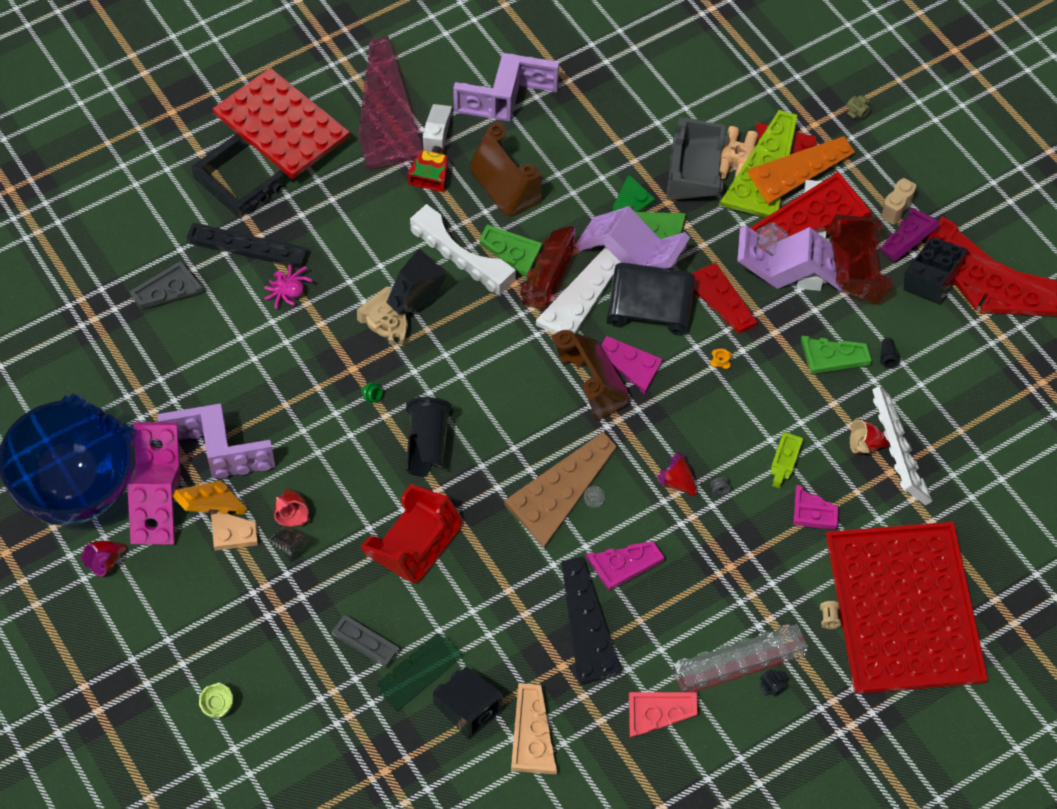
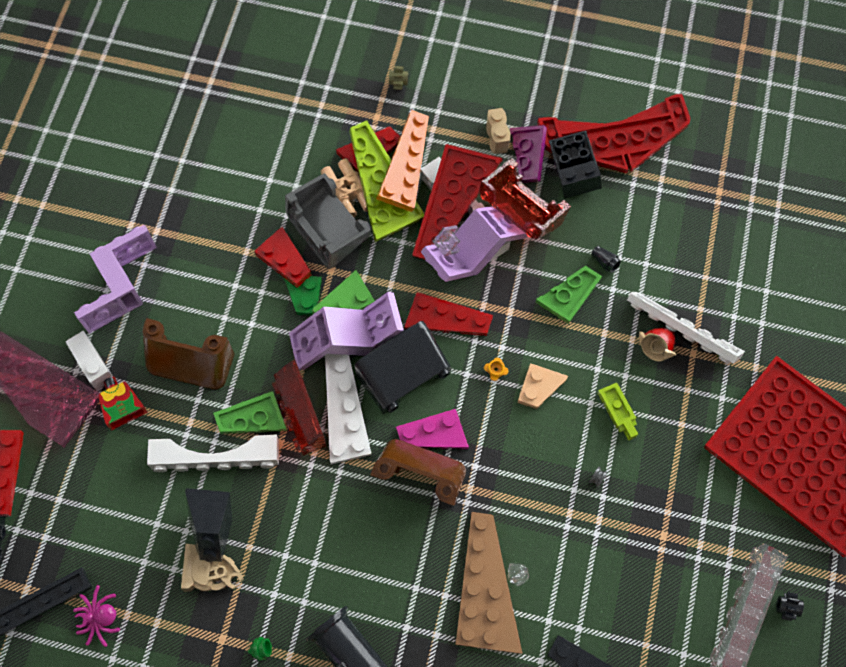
camera: 45 degrees left, 10 degrees up
(622, 565) = (593, 611): dark pink wing -> none
(640, 165) = (284, 258): none -> red wing
(678, 475) = (561, 499): red hat -> none
(742, 395) = (539, 385): none -> light nougat wing
(813, 511) = (678, 435): dark pink wing -> none
(830, 614) = (778, 513): tan bush -> none

